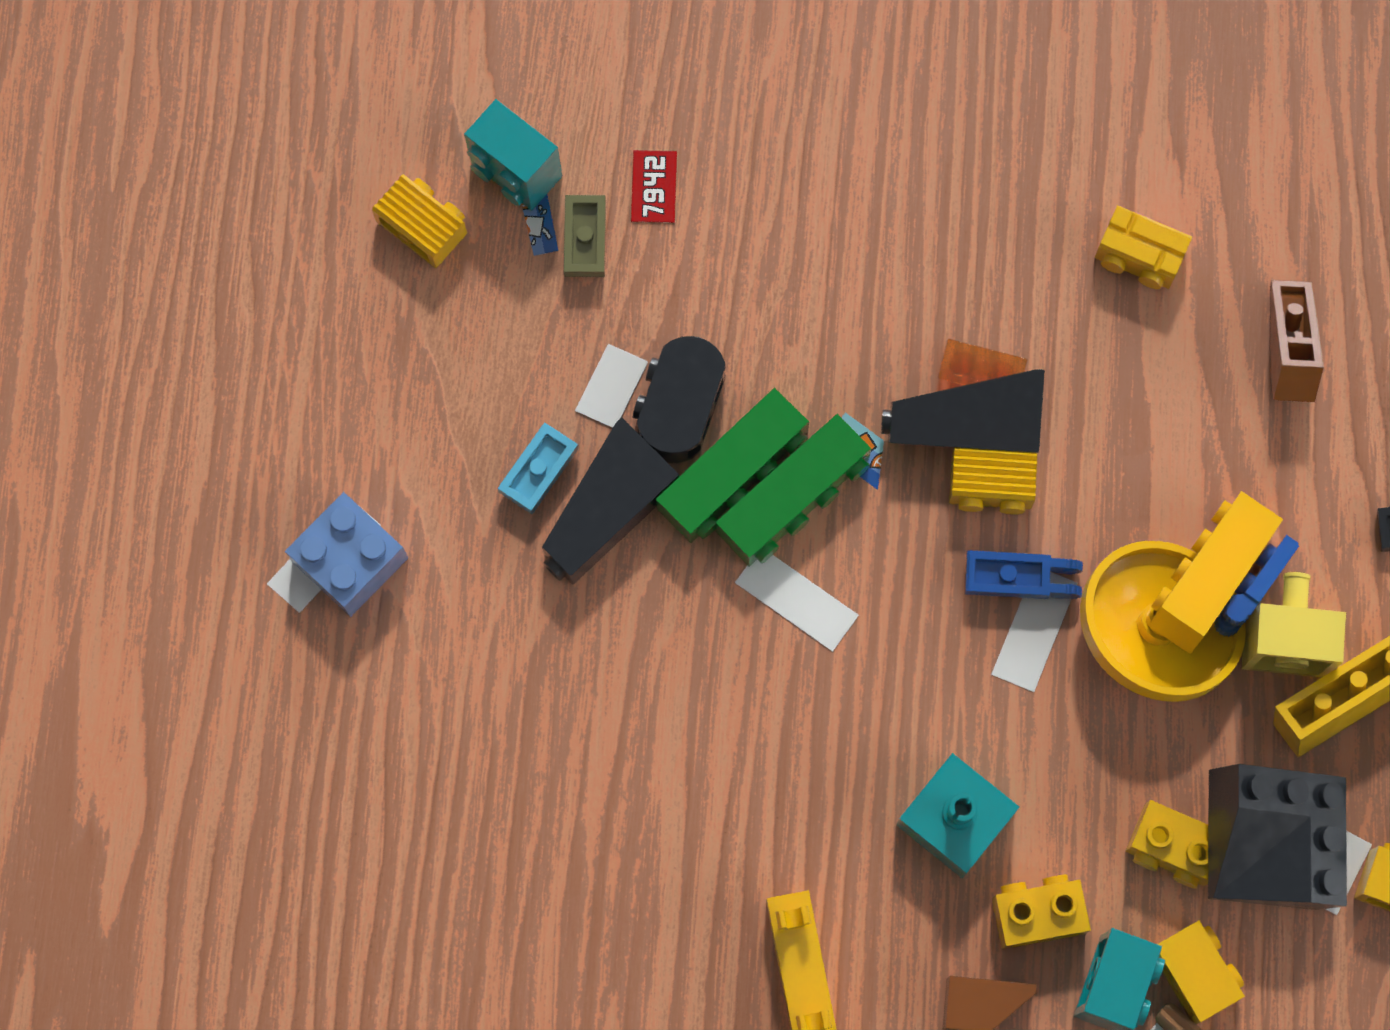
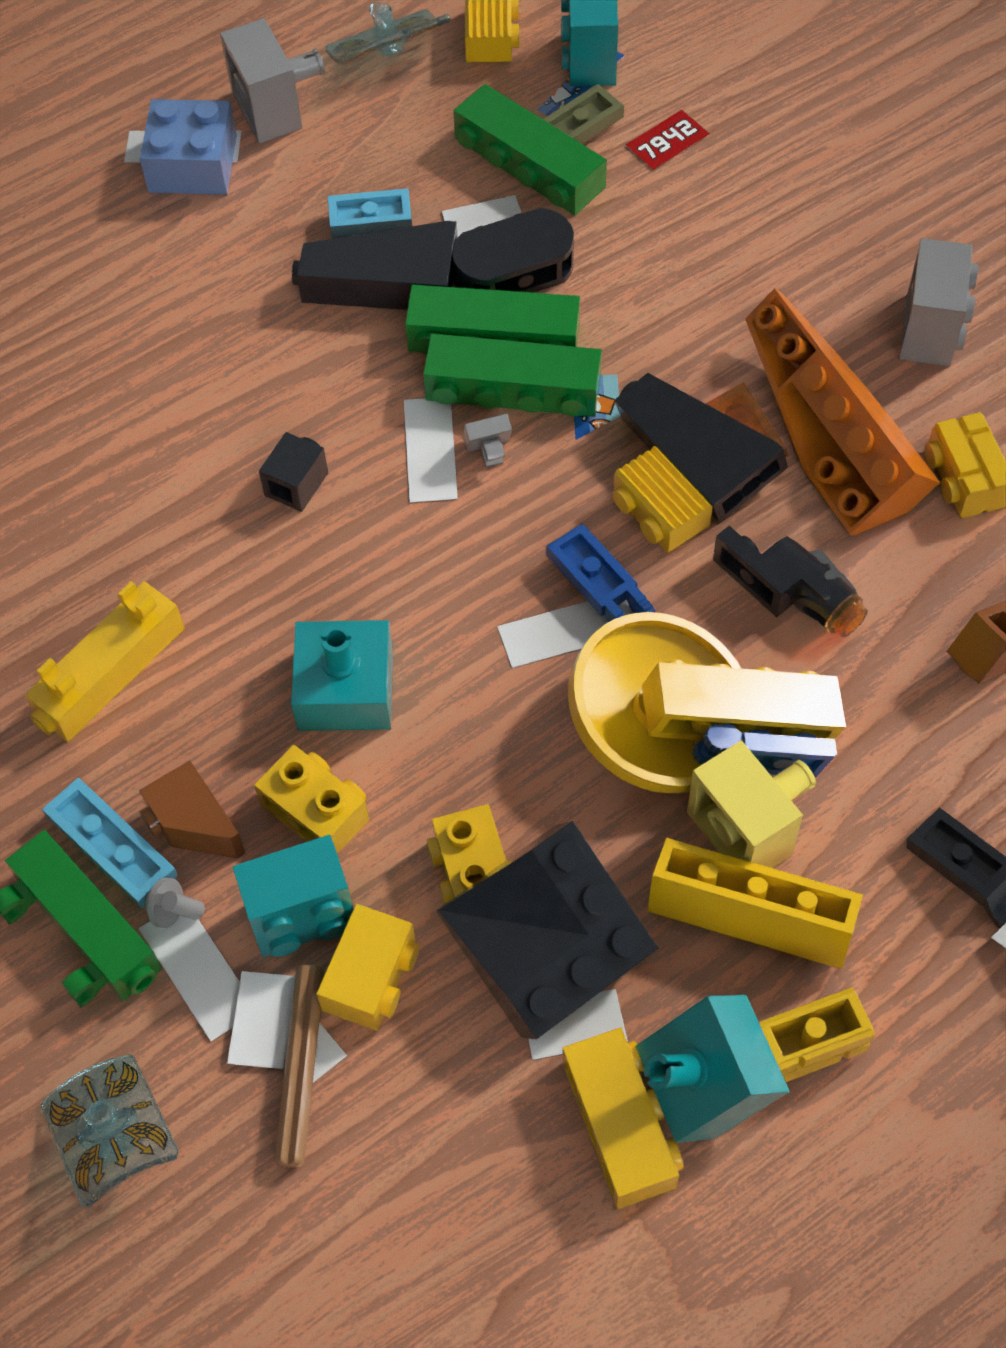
camera: 50 degrees right, 15 degrees down
(338, 444) = (265, 79): none -> light grey brick
(360, 310) = (386, 35): none -> clear light blue shield
(583, 301) = (530, 149): none -> green brick
(745, 714) = (294, 471): none -> black brick
(834, 553) = (488, 436): none -> light grey tile
(1000, 147) = (938, 302): none -> light grey brick
(1029, 303) = (835, 423): none -> orange wedge
(1131, 443) = (791, 576): none -> black plate

